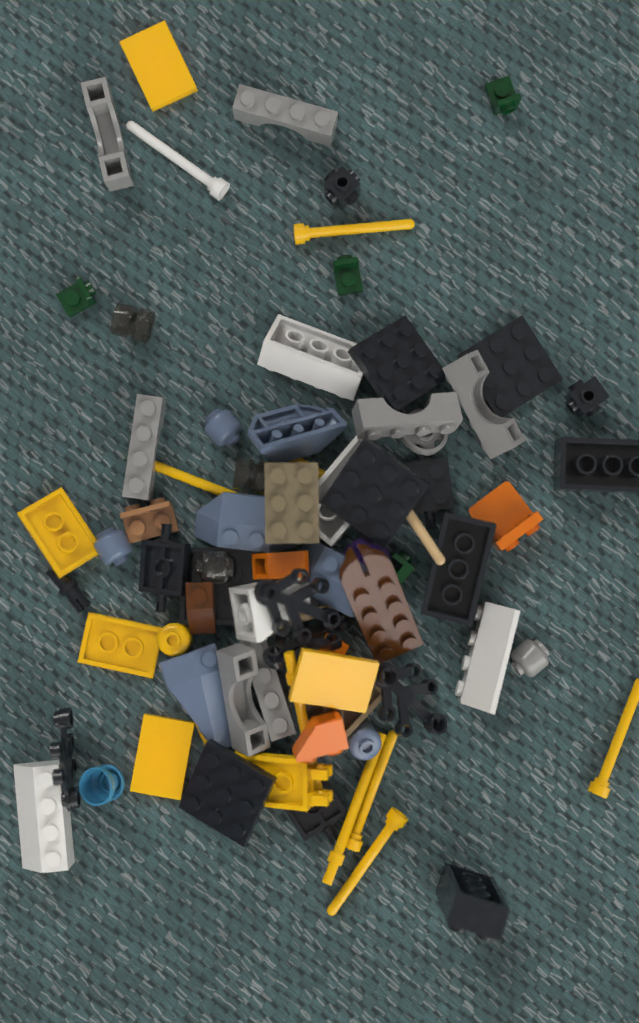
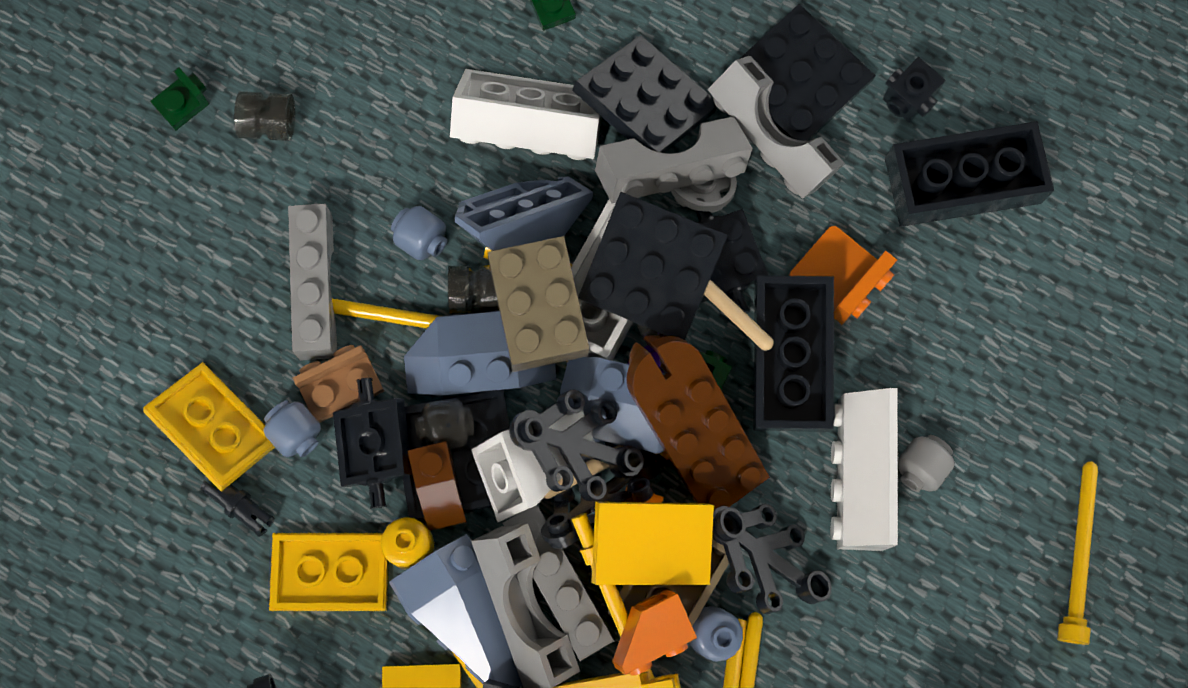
camera: 15 degrees left, 10 degrees down
(278, 564) = (535, 396): orange slope -> none

